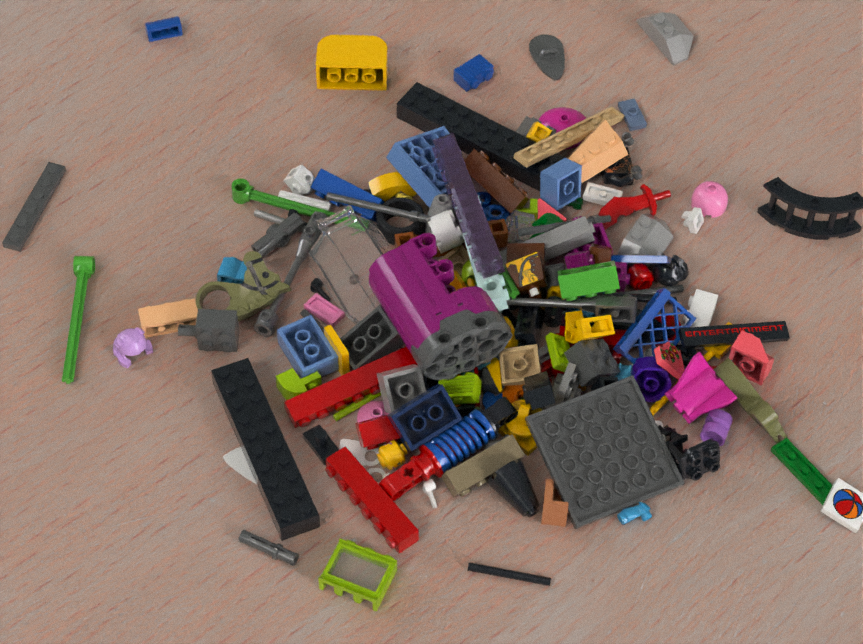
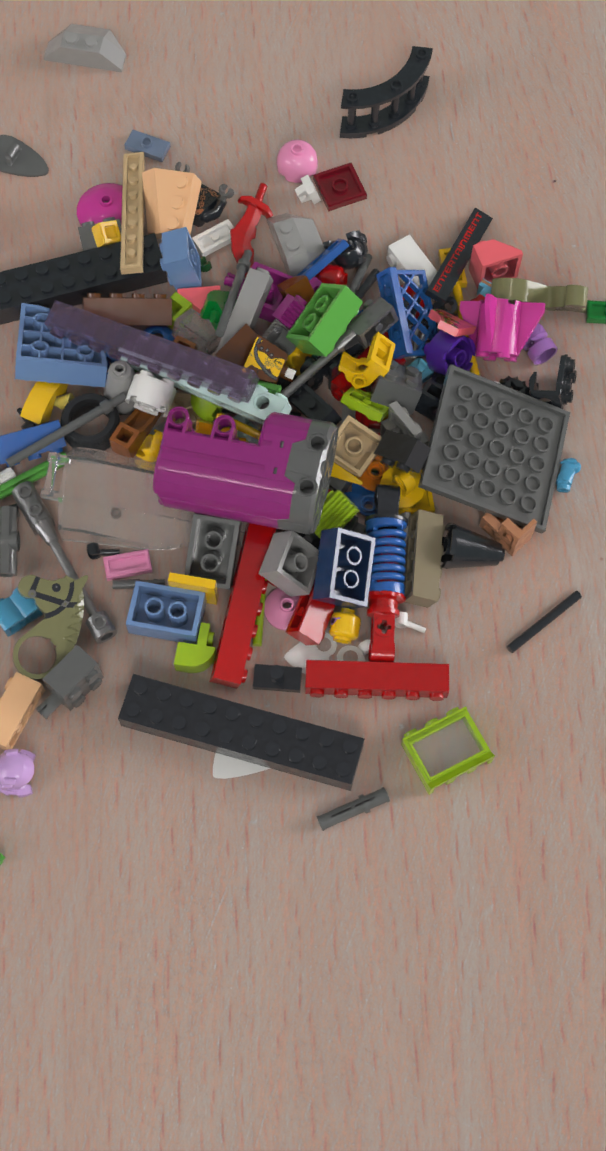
camera: 50 degrees left, 15 degrees up
(718, 236) = (339, 186): none -> dark red tile

